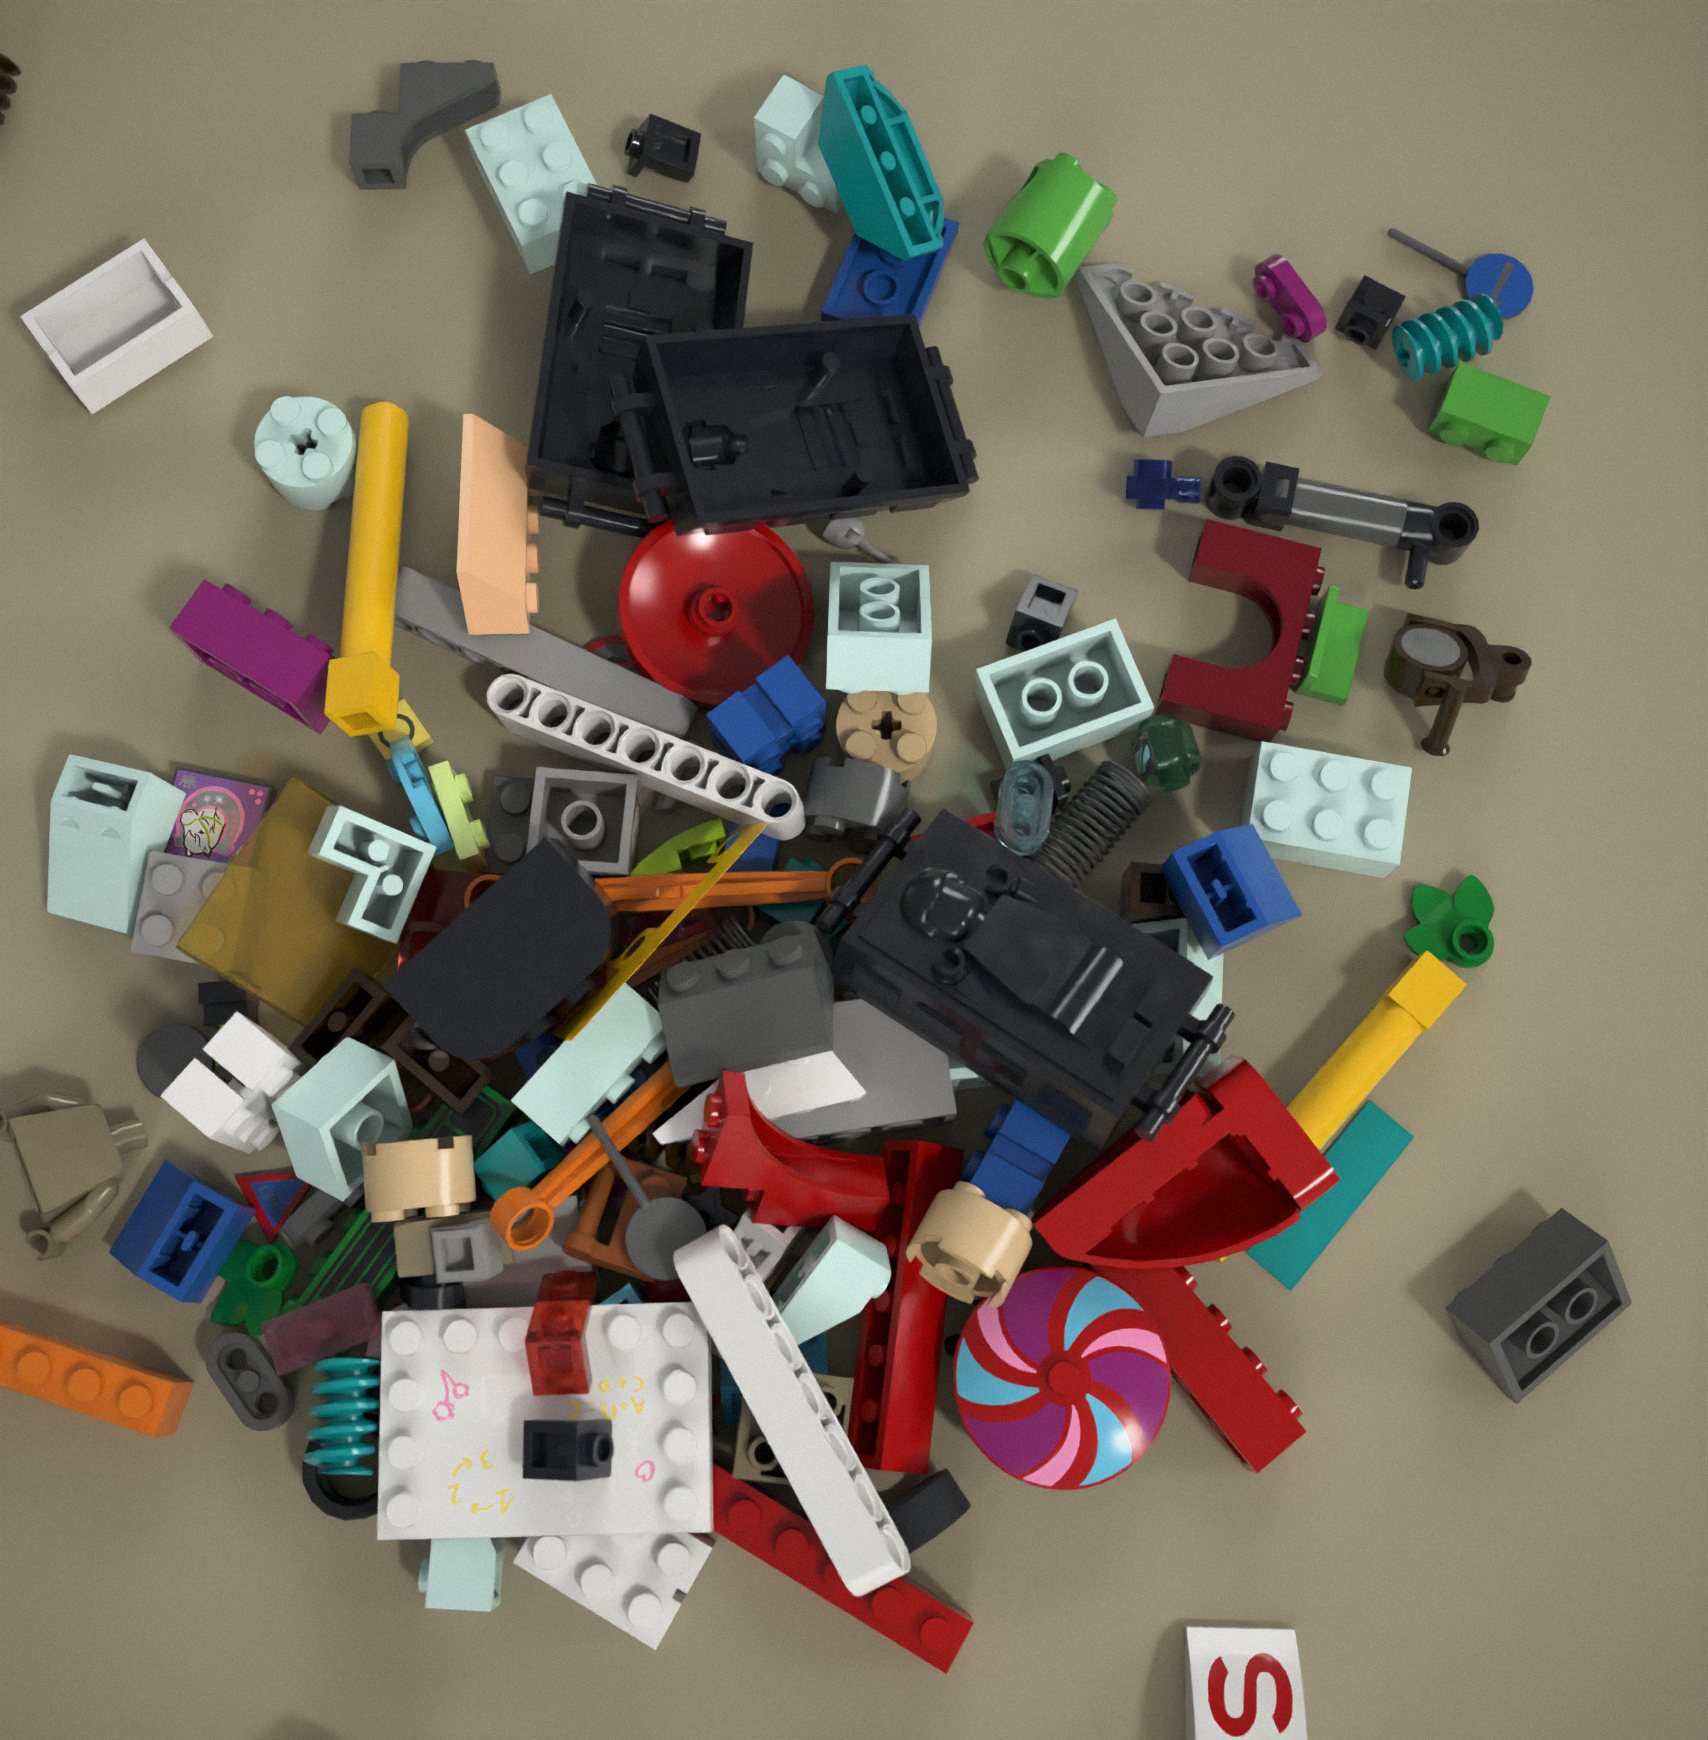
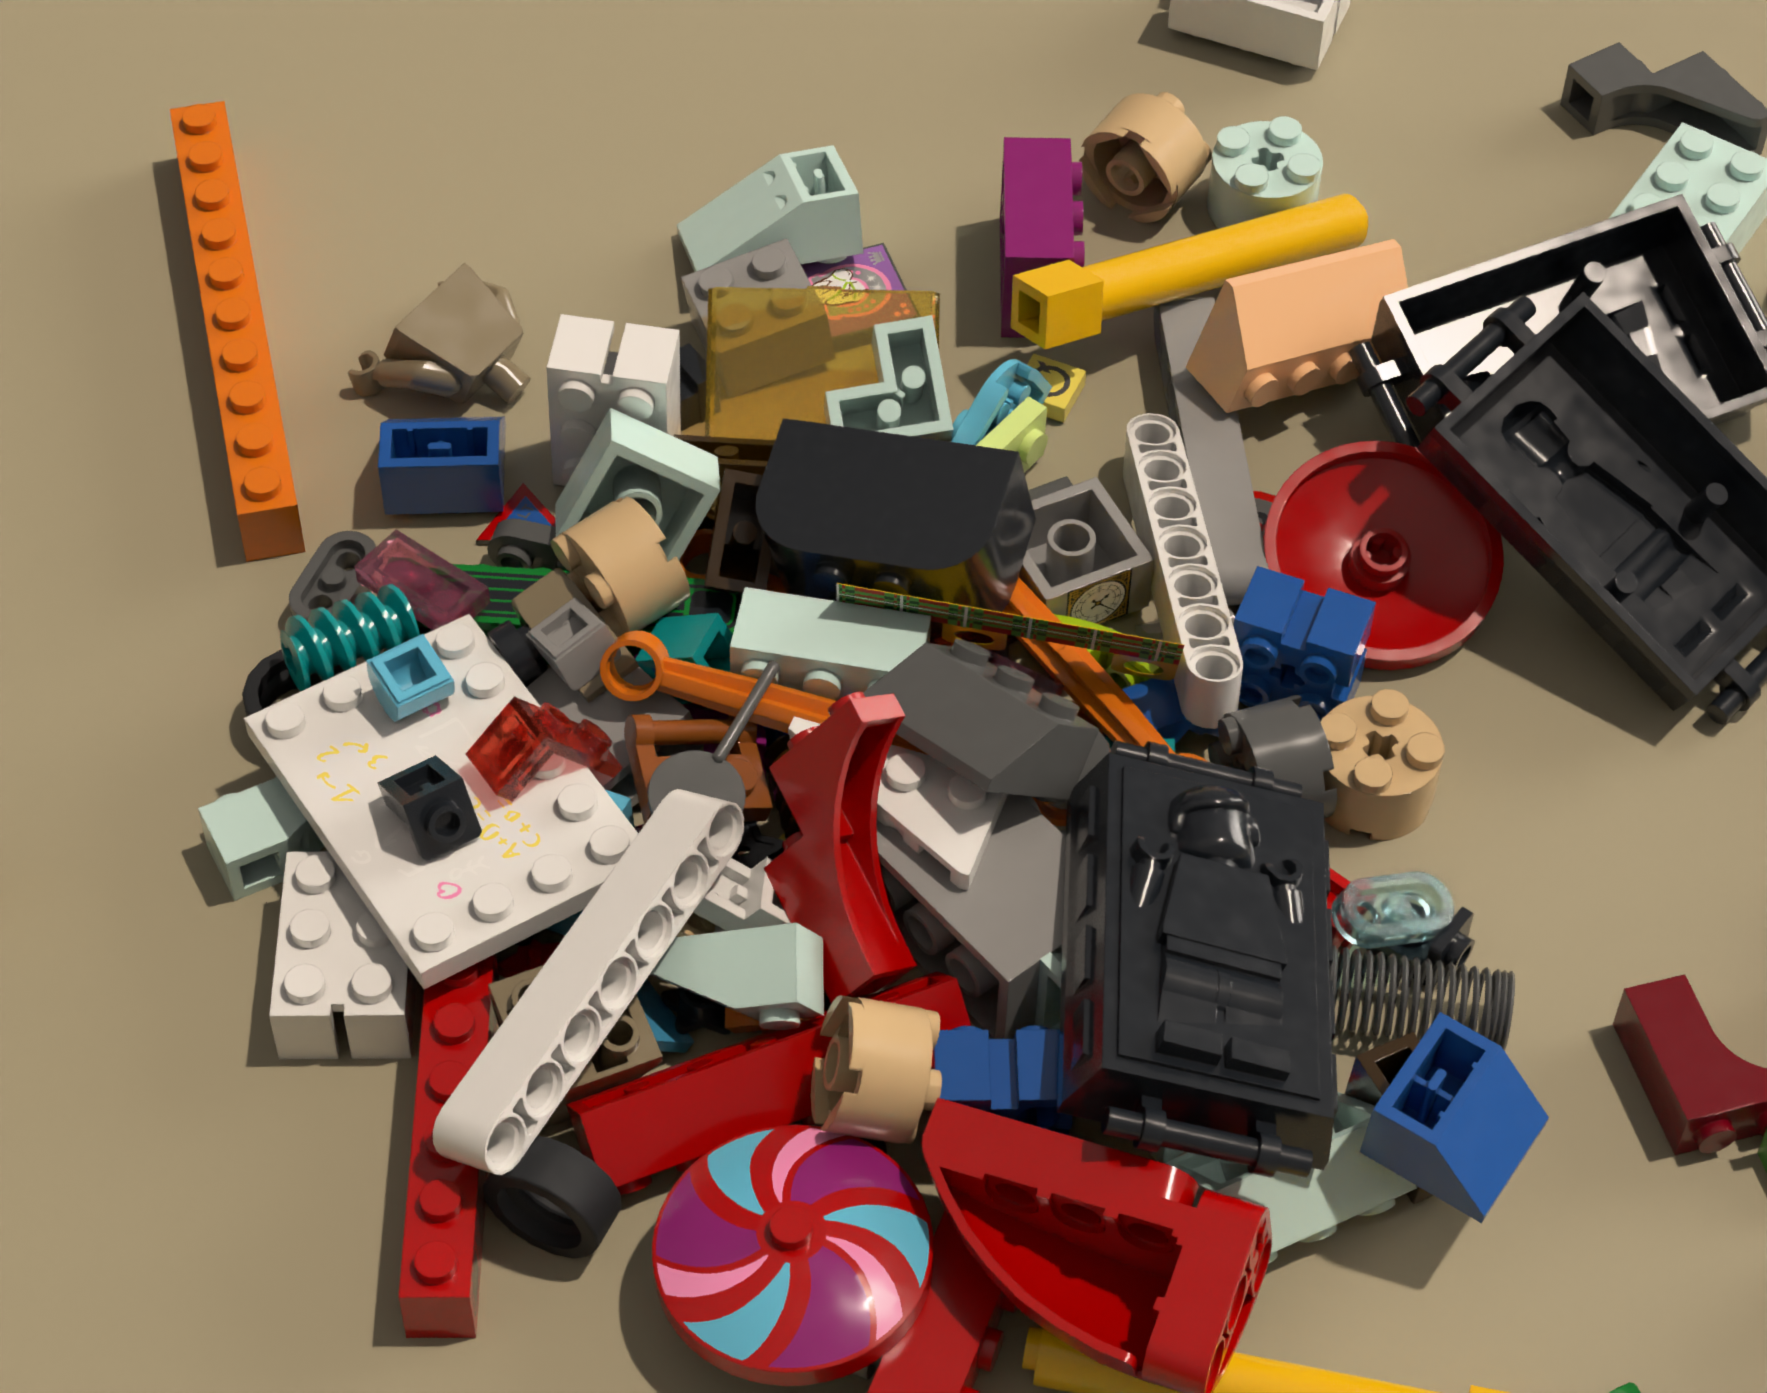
camera: 60 degrees right, 25 degrees down
(232, 525) = (1144, 155): none -> tan brick
(252, 1291) = (445, 534): green plate -> none
(436, 1400) = (409, 678): none -> medium azure brick
(849, 533) = (1565, 636): light grey hinge -> none
(879, 628) = (1474, 679): light aqua brick -> none
(1040, 613) = (1625, 845): black bracket -> none
(1063, 695) = (1552, 900): light aqua brick -> none
(1166, 752) = (1575, 1034): clear green head -> none
(1327, 808) = (1638, 1227): light aqua brick -> none

